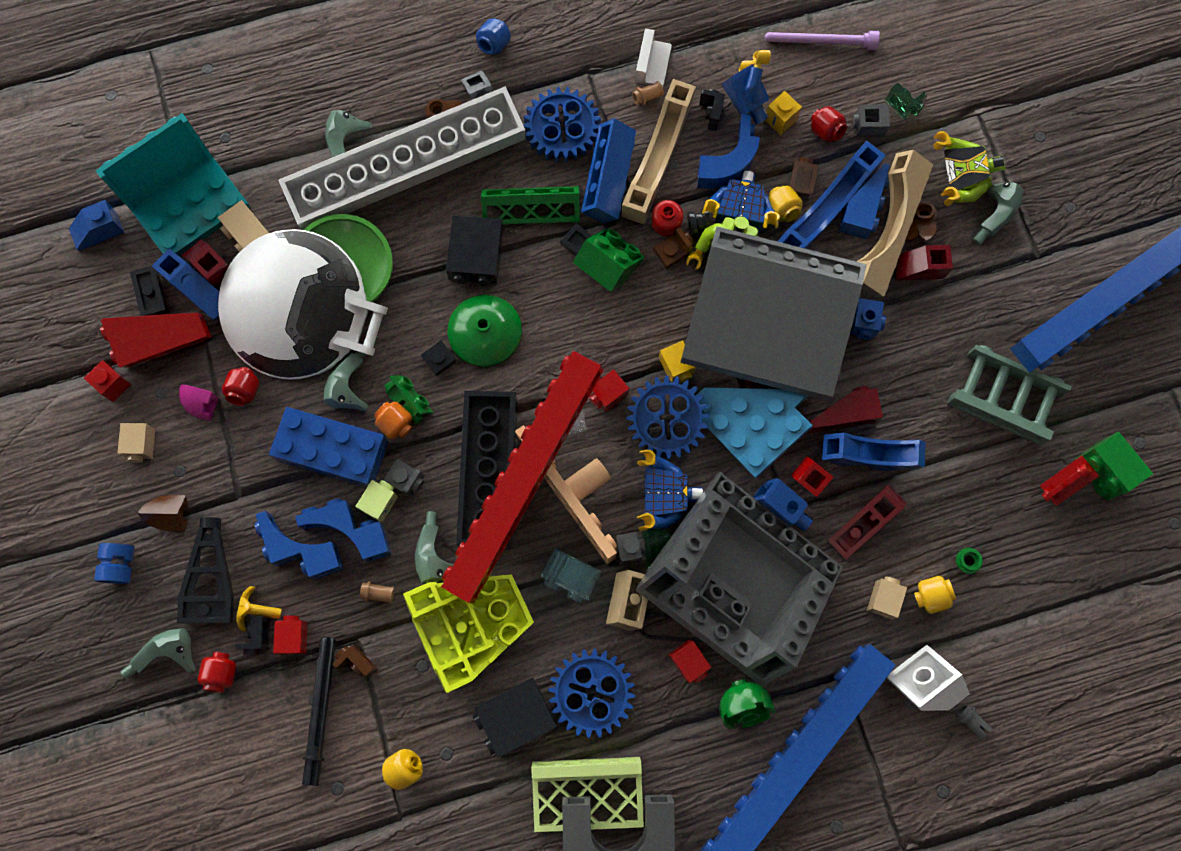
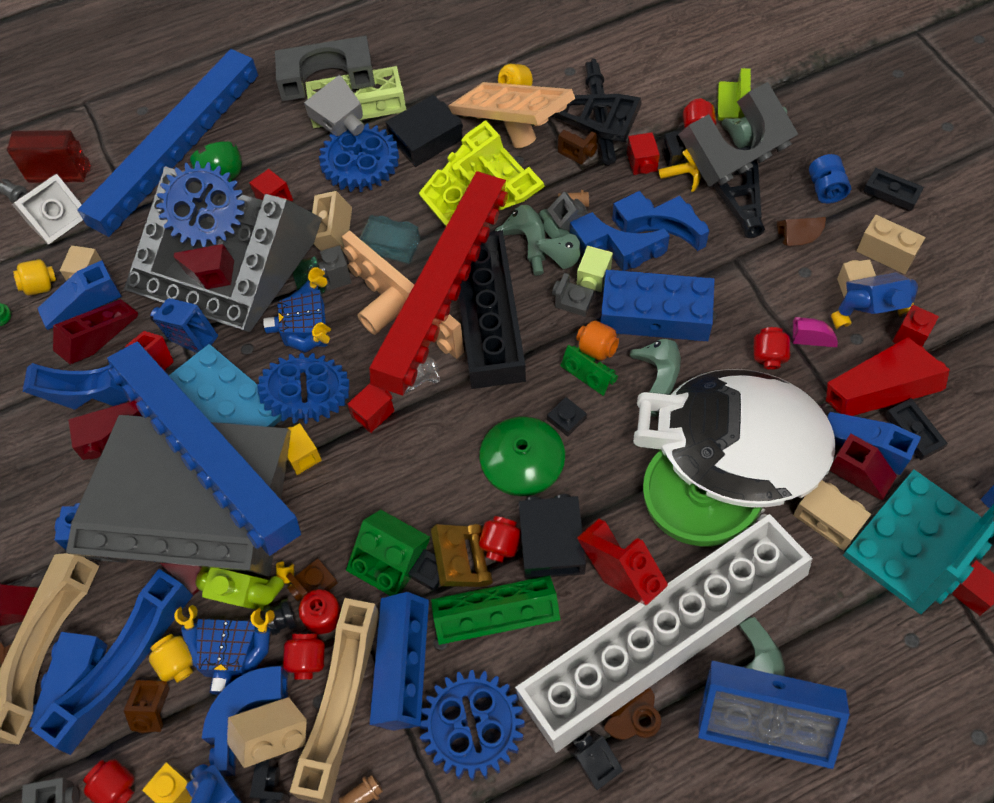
camera: 175 degrees right, 15 degrees down
(56, 544) = (893, 189): none -> black plate
(89, 474) = (890, 244): none -> tan brick
(127, 403) = (876, 296): none -> blue torso
(152, 618) = (718, 159): none -> dark grey arch
(168, 702) = (730, 93): none -> lime panel
(300, 680) = (619, 120): none -> black plate
(345, 88) = (773, 714): none -> brick
(378, 566) = (566, 210): none -> dark grey brick
(398, 528) = (563, 246): none -> sand green animal
(415, 705) = (514, 105): none -> light nougat plate
(437, 221) = (626, 569): none -> red panel
(516, 255) = (499, 538): none -> red head
(556, 245) = (453, 557): none -> pearl gold plate
(607, 745) = (336, 108): none -> light grey torso
(682, 189) = (303, 655): none -> red head
(711, 131) = (266, 732): none -> tan brick
(756, 556) = (207, 265): none -> dark red slope
(758, 342) = (204, 449): none -> blue brick
(780, 624) = (177, 194): none -> blue gear
(886, 560) = (79, 294): none -> blue slope
(934, 748) = (48, 153): none -> clear red brick

